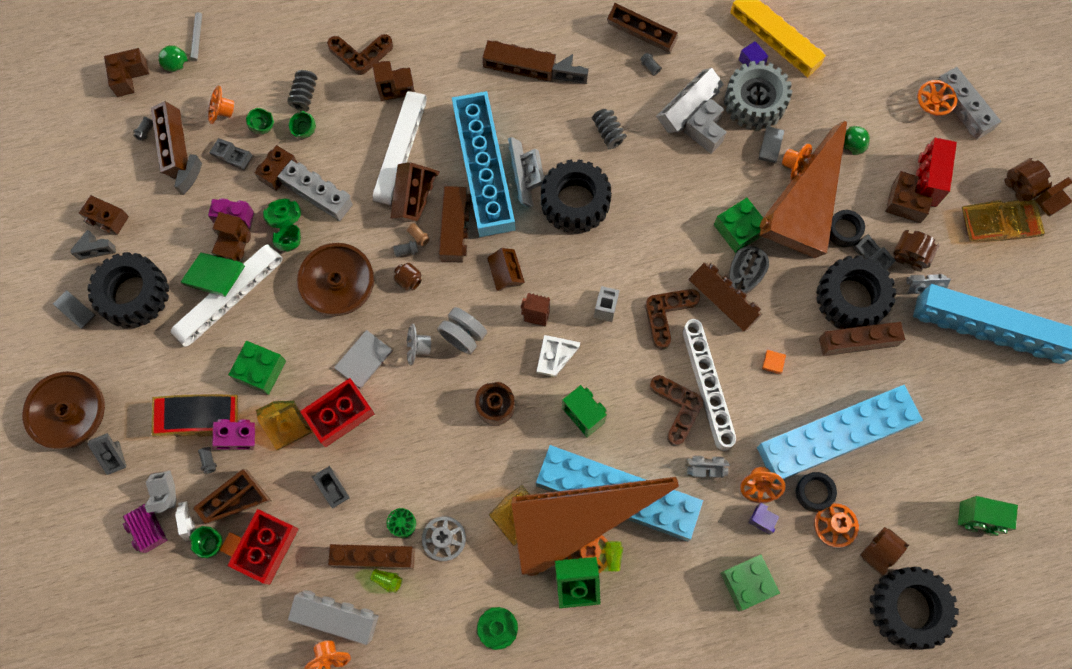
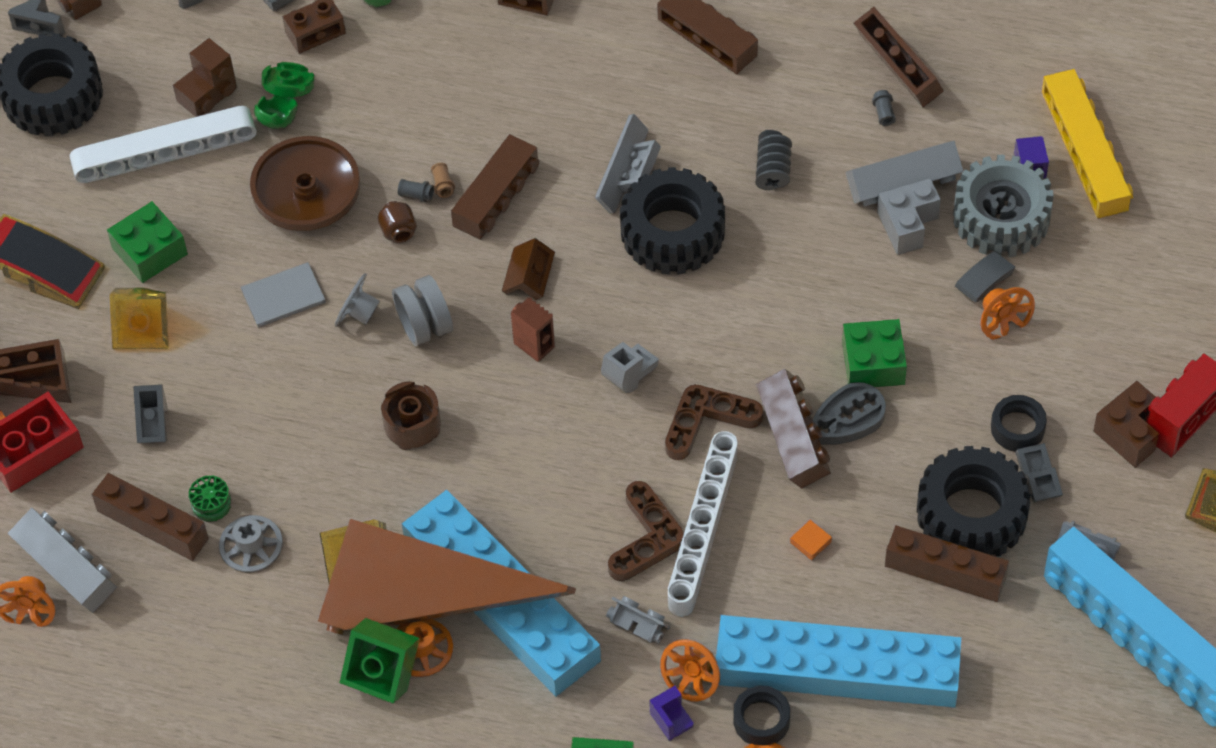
camera: 30 degrees right, 15 degrees down
(207, 461) = (22, 324): dark grey pin -> none
(213, 274) = (160, 111): green tile -> none
(233, 435) = (71, 302): magenta brick -> none
(240, 209) = (240, 51): magenta brick -> none
(315, 190) = (346, 71): light grey brick -> none
(337, 412) = (211, 335): red brick -> none
(387, 580) = (153, 555): clear neon green cone -> none
(399, 145) = (484, 67): white beam -> none
(411, 191) = (464, 121): reddish brown wedge -> none
(483, 164) = (577, 131): medium azure brick -> none
(497, 628) = (251, 674): green tile -> none
(555, 355) = (526, 398): white wing -> none
(566, 71) = (766, 69): dark grey slope -> none
(584, 410) = (517, 473): green brick -> none
(614, 554) = (450, 658): clear neon green cone -> none
(806, 207) = (971, 369): dark orange slope -> none
(856, 140) = (1109, 322): green hair -> none
(916, 249) = (1093, 488): reddish brown brick -> none

